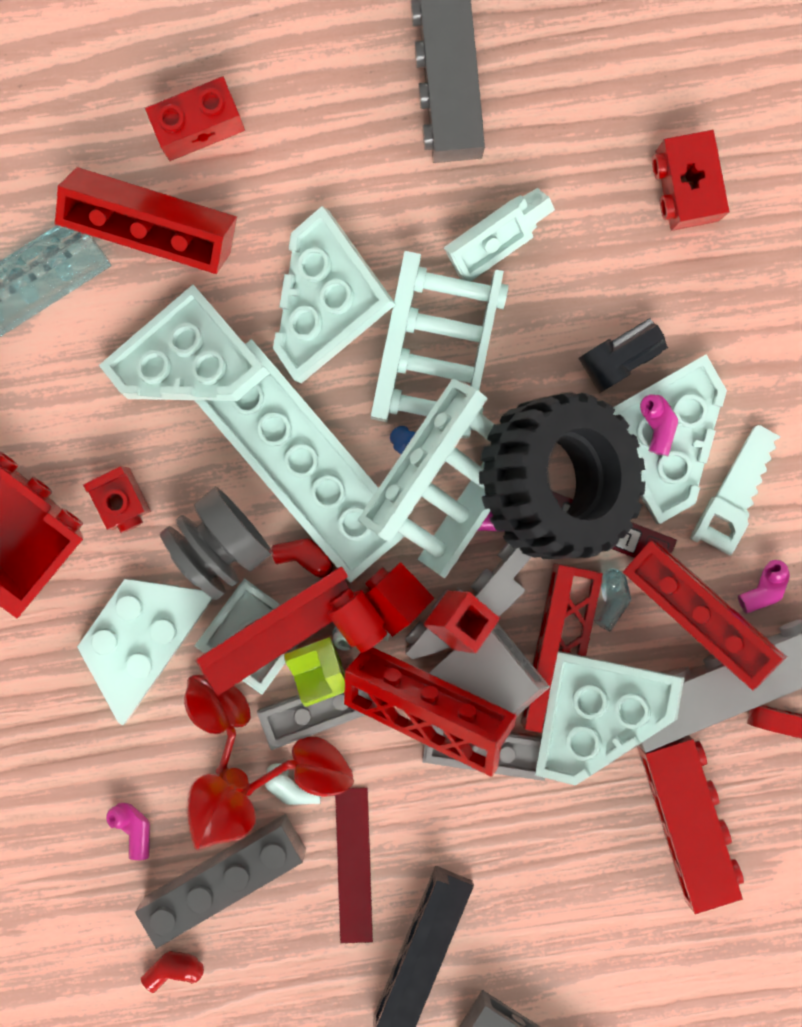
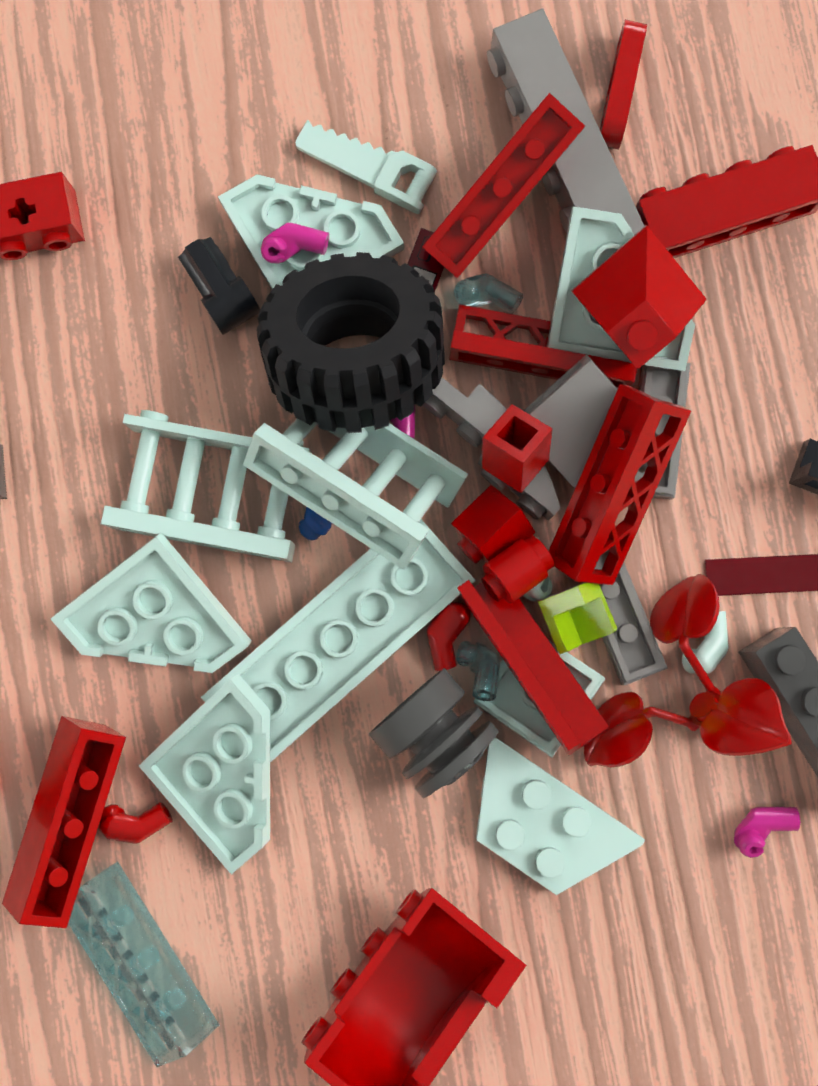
camera: 90 degrees left, 5 degrees down
(119, 482) = (365, 849): red brick -> none
(139, 278) = (133, 829): none -> red arm
(275, 589) = (484, 664): none -> clear light blue arm
(498, 234) = (85, 423): light aqua hinge -> none
(597, 736) = (640, 297): none -> red slope
(769, 589) = (473, 128): dark pink arm -> none

